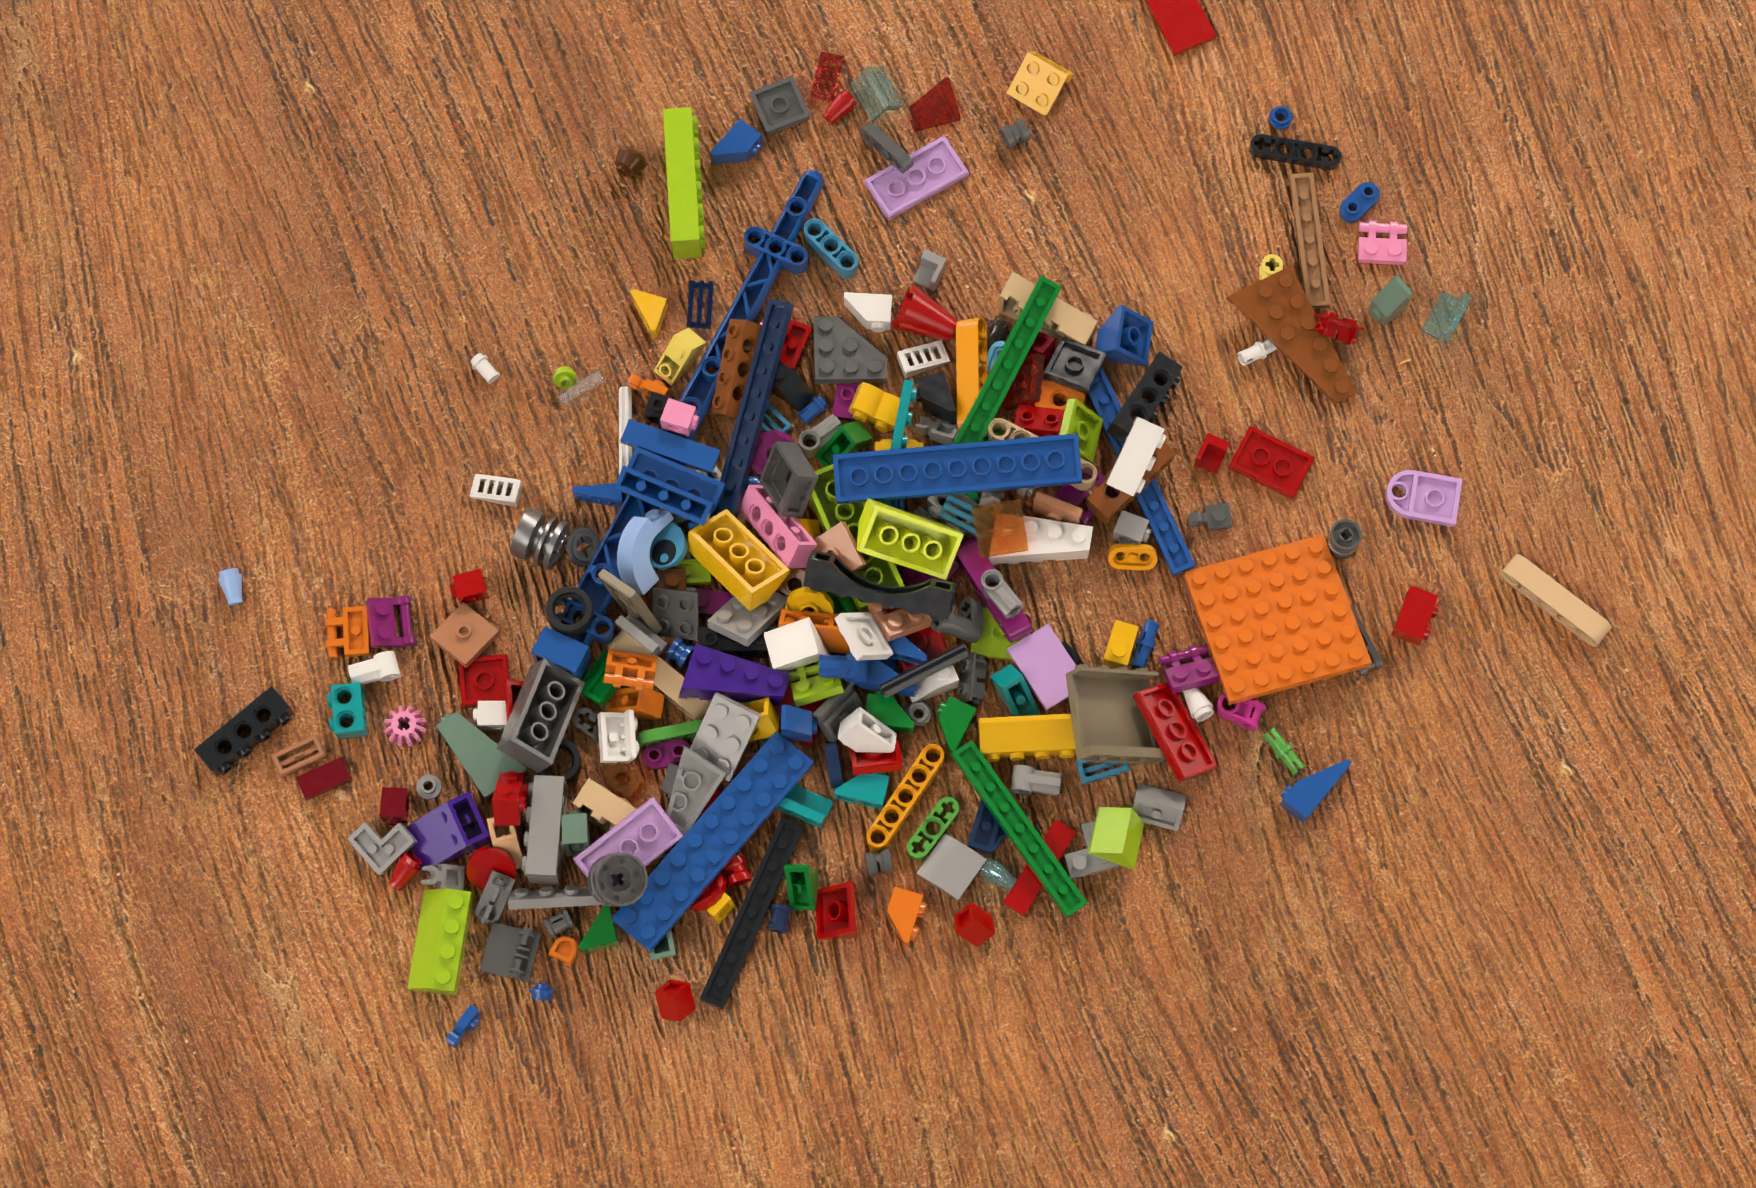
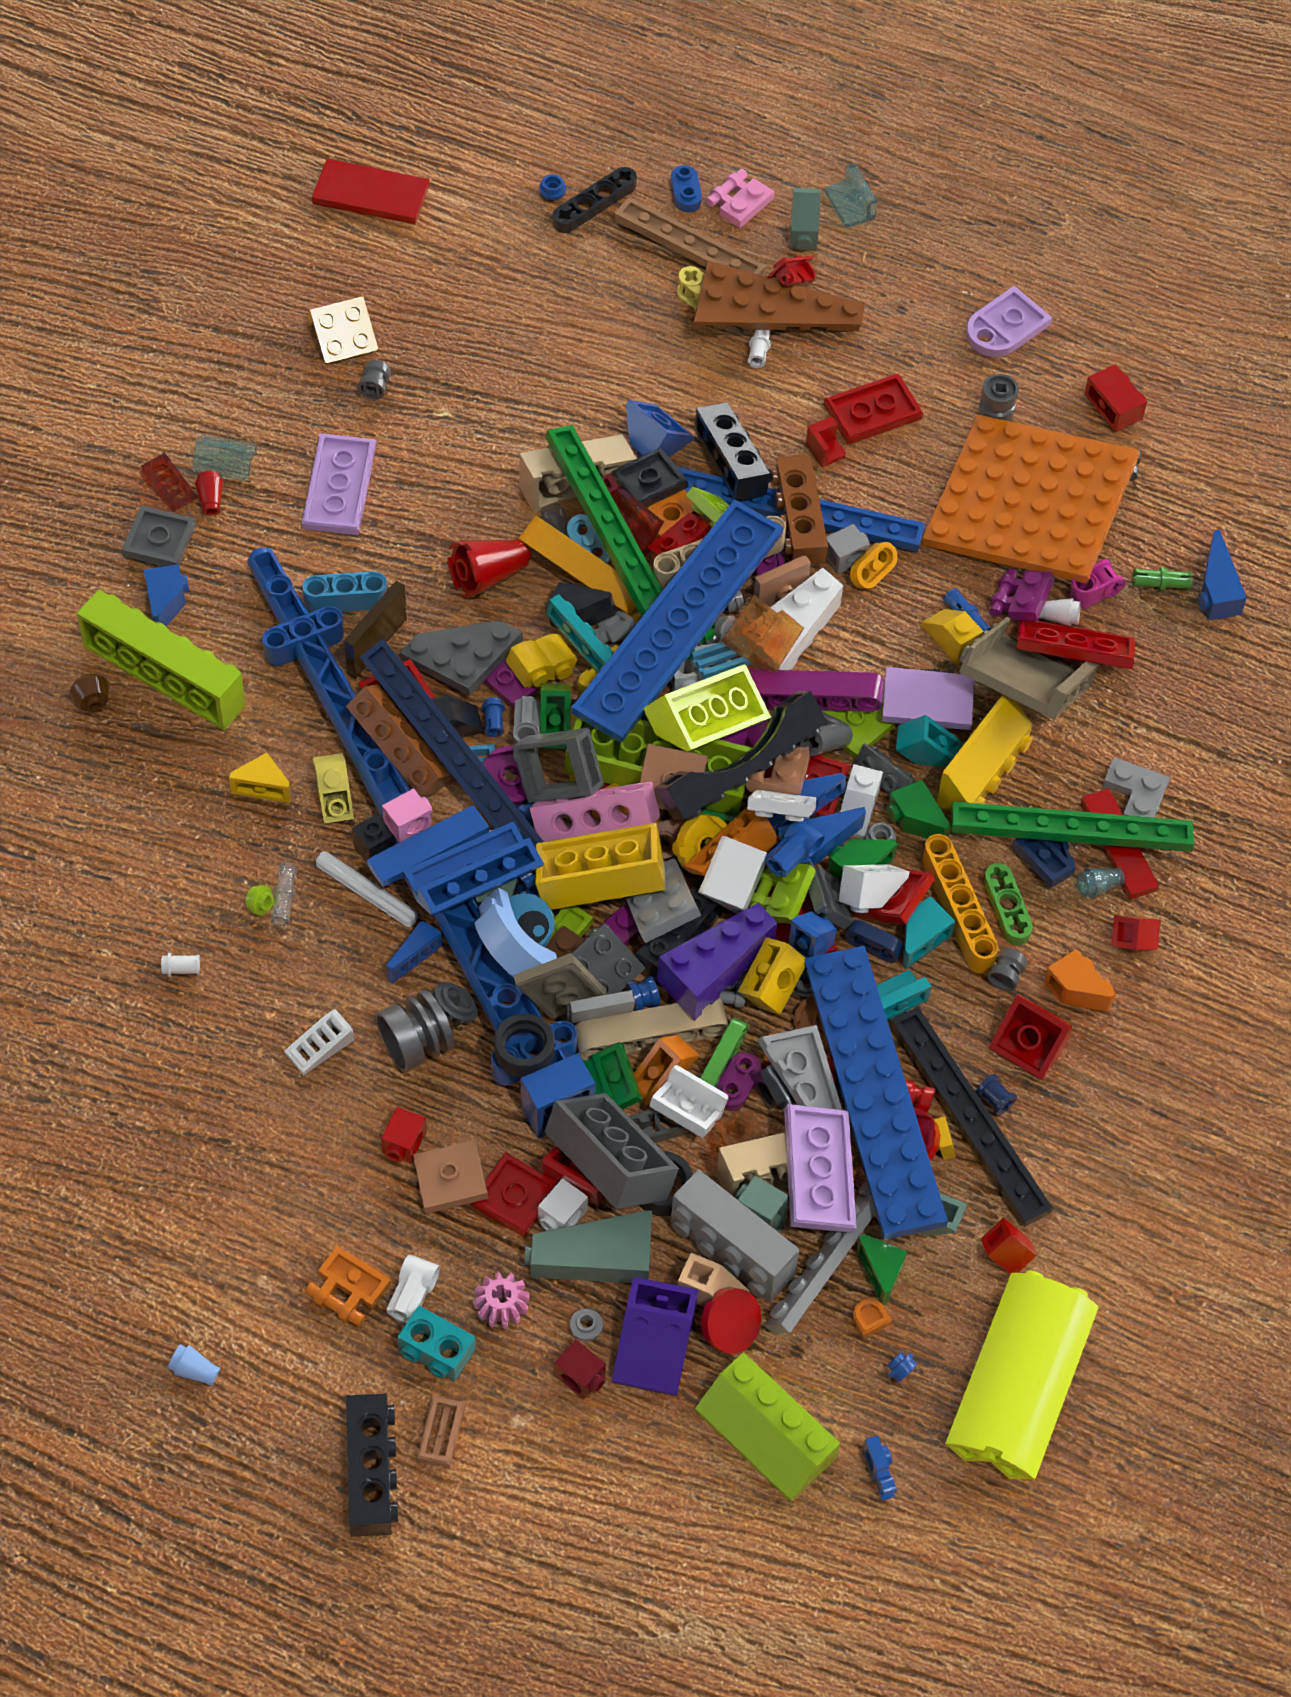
camera: 55 degrees left, 15 degrees down
(324, 778) = (488, 1423): dark red tile -> none
(382, 622) = (370, 1243): magenta plate -> none
(385, 851) = (621, 1420): light grey plate -> none
(405, 870) = (662, 1409): red cone -> none
(445, 876) = (700, 1372): light grey plate -> none
(494, 898) = (762, 1339): dark grey hinge -> none
(509, 798) = (678, 1238): red brick -> none
(510, 951) = (831, 1369): dark grey hinge -> none
(558, 923) = (839, 1300): dark grey bush -> none
(590, 1068) = (1022, 1375): none -> neon yellow cylinder
(630, 873) = (855, 1188): flat silver wheel -> none
(633, 665) = (632, 1036): orange plate -> none
(647, 386) = (340, 836): orange plate -> none
(701, 286) = (285, 717): clear blue tile -> none
(725, 733) = (770, 997): light grey plate -> none
(802, 886) = (979, 1050): green slope -> none
(811, 289) = (378, 623): none -> dark brown tile
(870, 309) = (437, 602): white slope -> none
(886, 147) = (315, 475): dark grey beam -> none
(917, 368) = (521, 614): white slope -> none
(924, 670) = (853, 788): black axle -> none
(930, 270) = (442, 529): light grey panel -> none
(935, 107) = (285, 423): clear red wing -> none
(951, 866) = (1061, 913): light grey slope -> none
(1001, 594) = (829, 674): light grey piece -> none
(1029, 780) = (1034, 784): light grey piece -> none
(1086, 780) = (1050, 745): dark azure tile -> none
(1116, 836) = (1141, 755): lime slope -> none
(1136, 457) = (793, 475): white wedge -> none
(1159, 806) = (1138, 709): light grey panel -> none
(1214, 517) = (887, 482): dark grey plate -> none
(1555, 600) = (1184, 296): tan beam -> none

